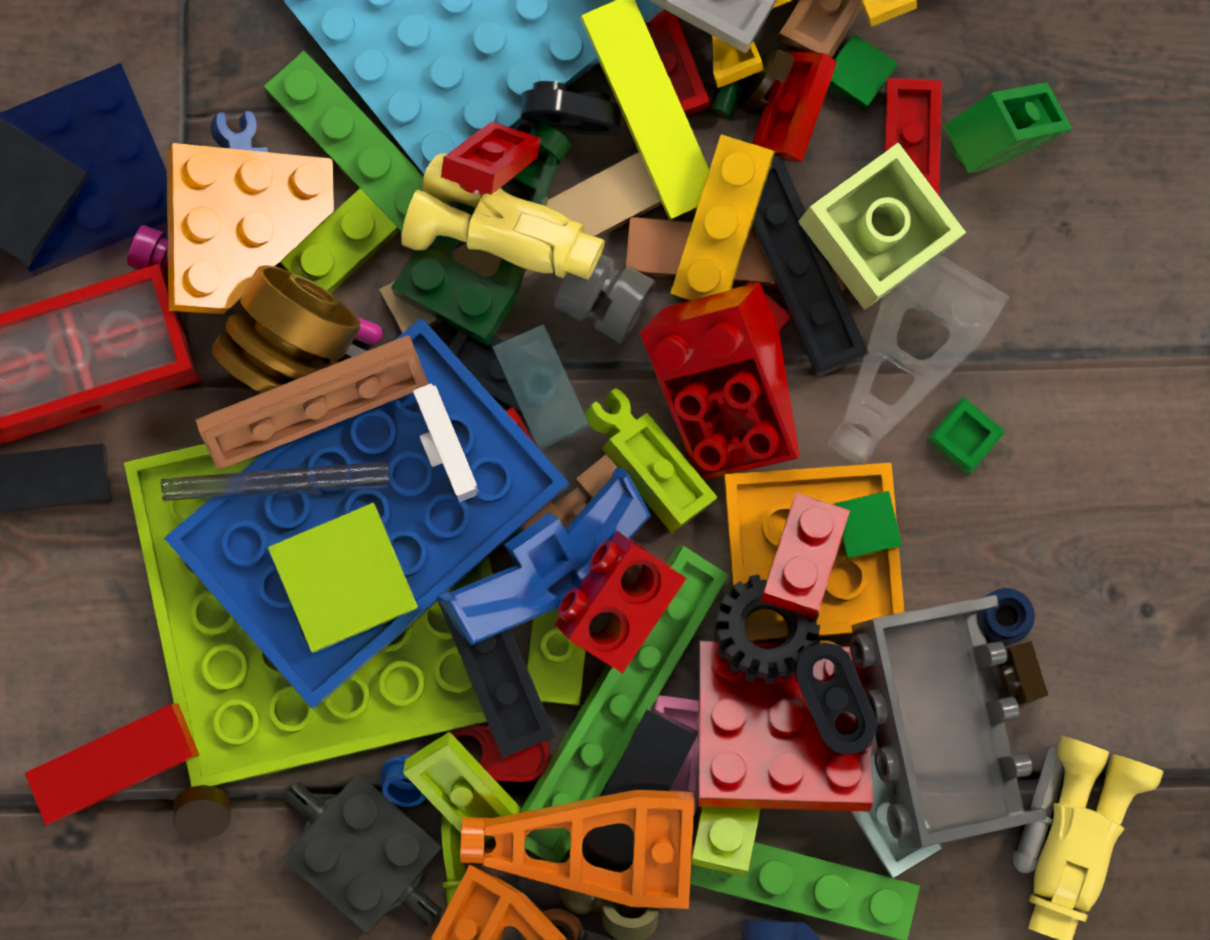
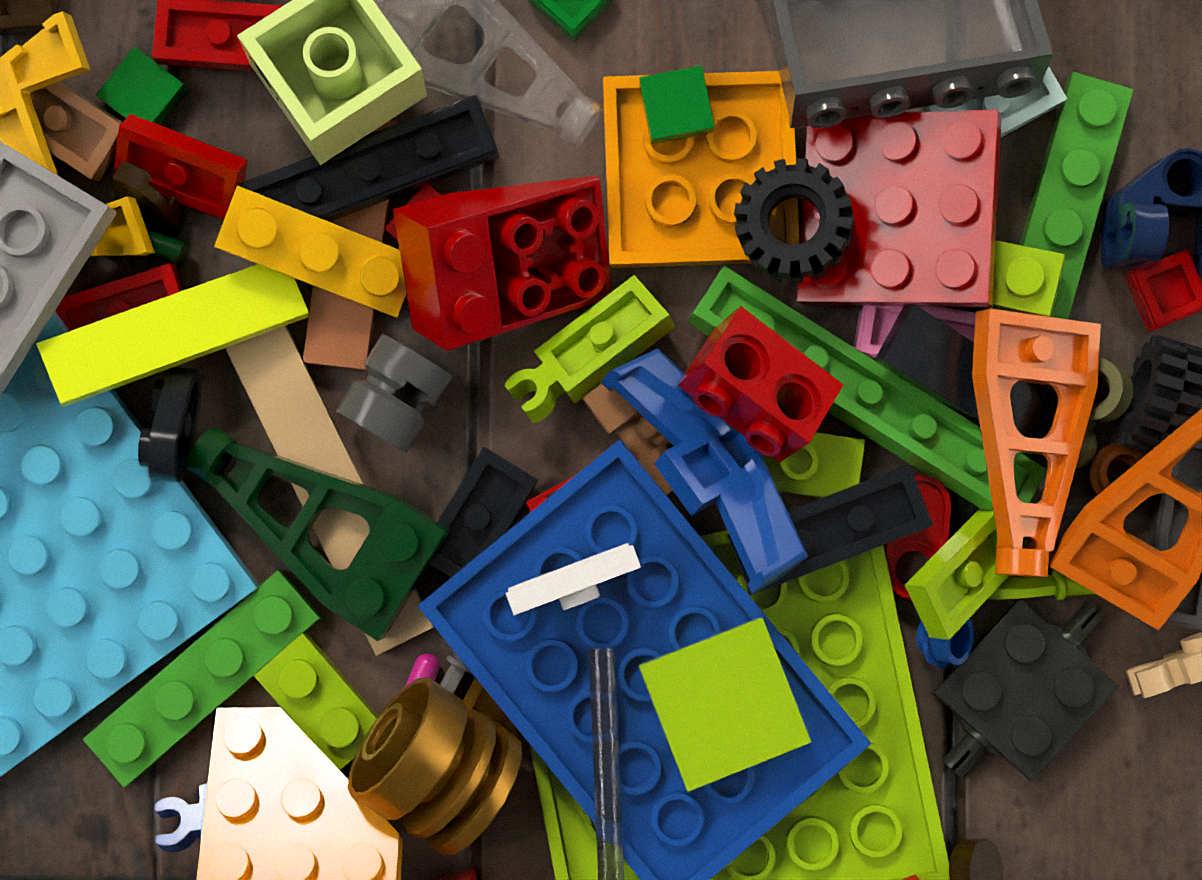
camera: 90 degrees left, 5 degrees up
(312, 402) = (519, 736): nougat tile -> none
(490, 158) = (231, 518): red plate -> none
(501, 225) = (310, 506): light yellow piece -> none
(541, 387) = (502, 469): clear light blue plate -> none
(805, 555) = (716, 170): plate -> none
(834, 696) = (878, 142): black plate -> none

